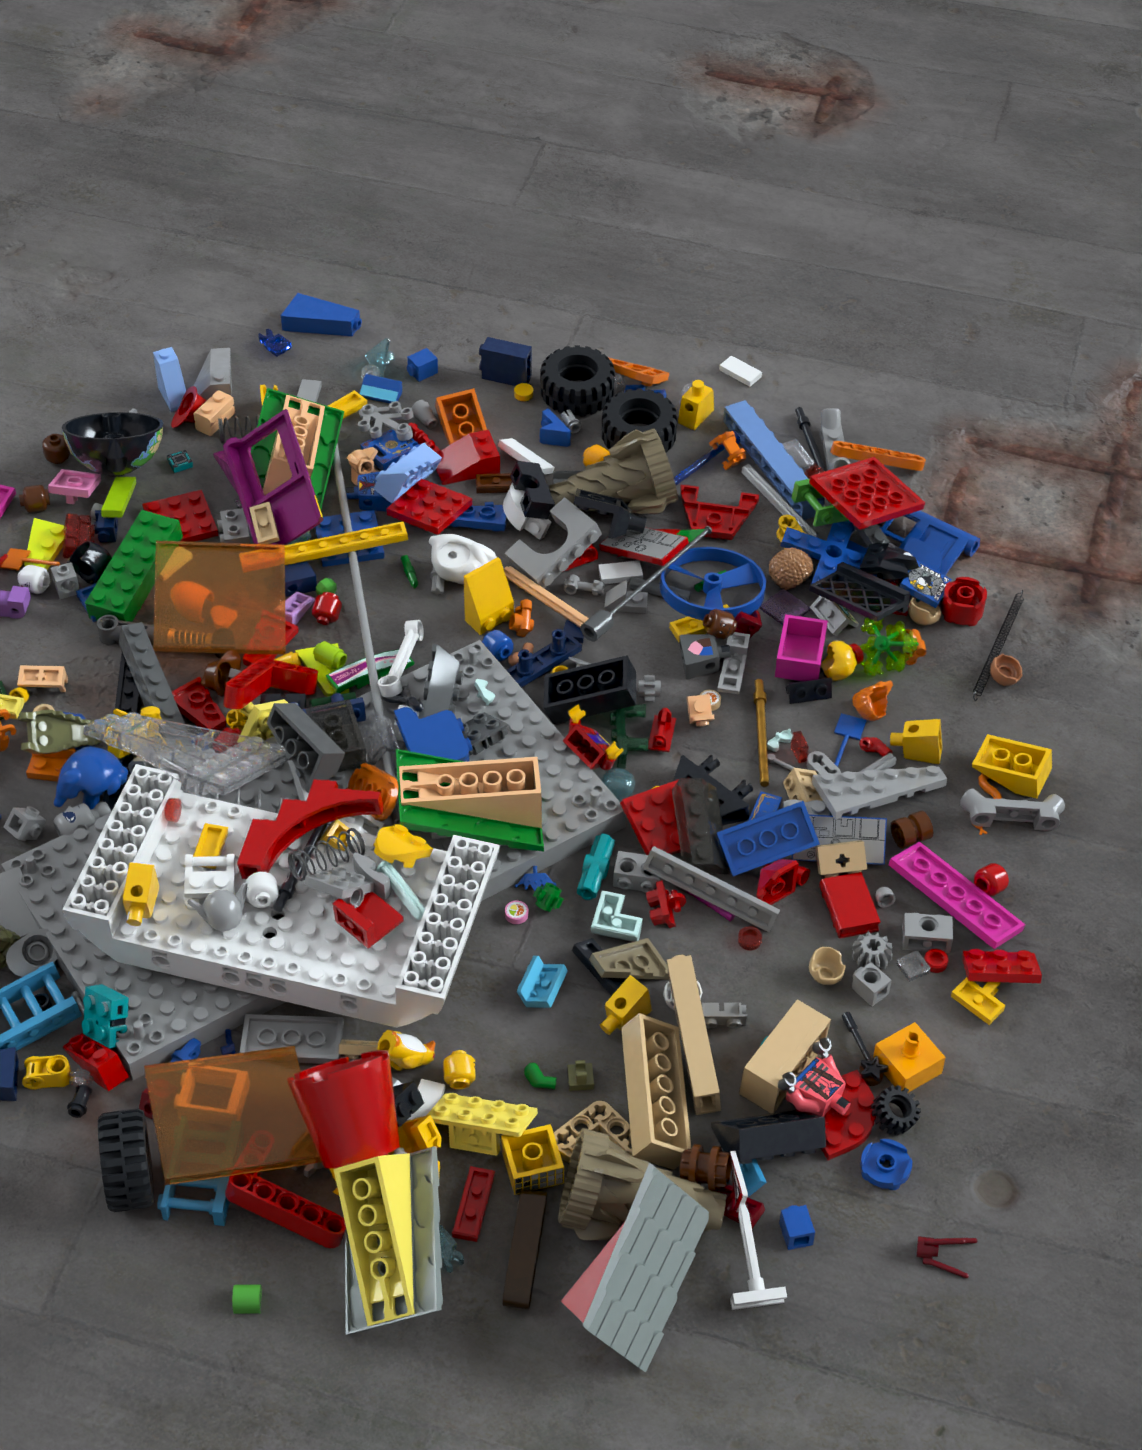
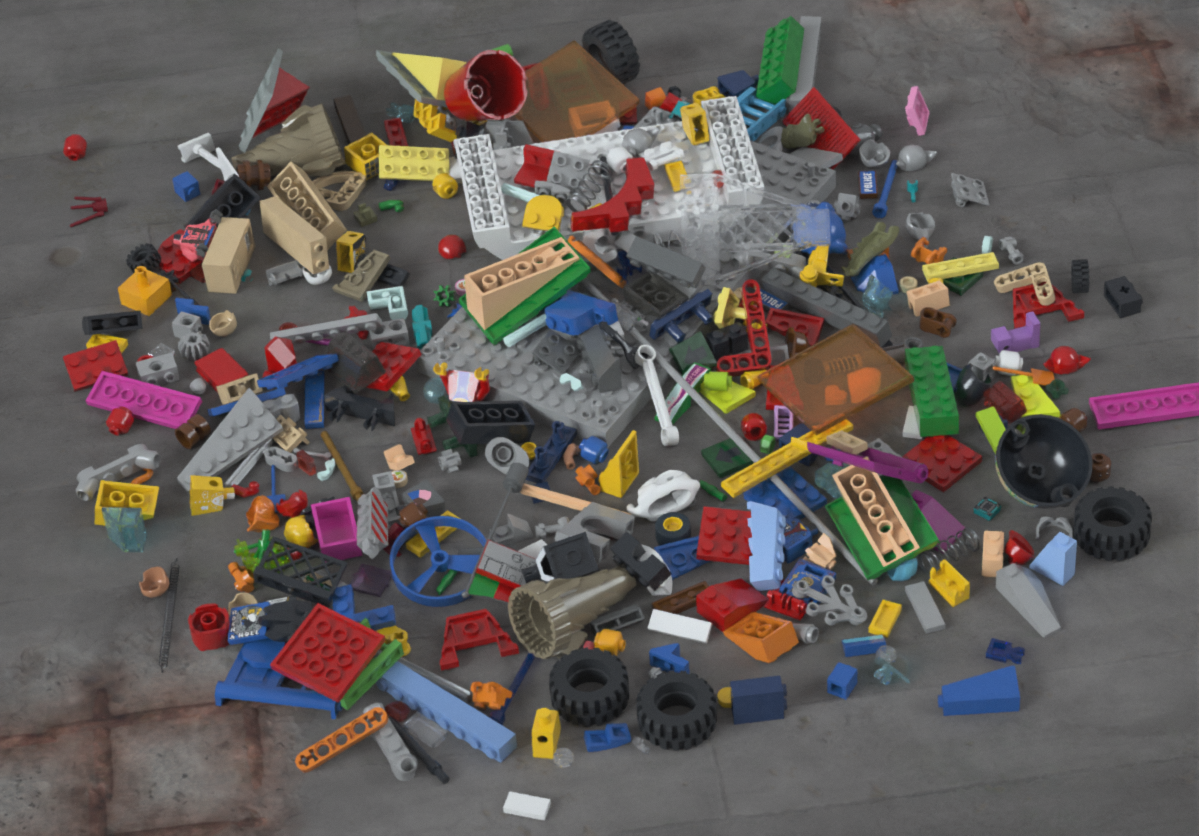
camera: 160 degrees right, 5 degrees down
(13, 540) = (1057, 384): none -> clear green plate
(58, 651) = (935, 322): none -> reddish brown piece
(93, 377) = (1113, 505): none -> black tyre
(97, 696) = (876, 297): none -> clear light blue helmet
(108, 1103) = (654, 98): none -> orange brick
(377, 597) = (726, 458): none -> dark green tile
(477, 531) = (672, 528): none -> black wheel
(500, 975) = (451, 247): none -> red hair
(541, 983) = (419, 248): medium azure bracket -> none
(647, 375) = (608, 746): orange plate -> none
(764, 631) = (372, 523): none -> light grey hinge
(790, 568) = (376, 595): medium nougat hair -> none
(835, 698) = (294, 505): none -> red hair
(862, 1009) = (188, 306): none -> blue slope
(884, 1177) = (132, 237): blue plate -> none
(935, 1382) = (75, 147): none -> red head
(954, 1016) = (112, 322): none -> black piece
(1022, 723) = (125, 528): none -> clear light blue slope

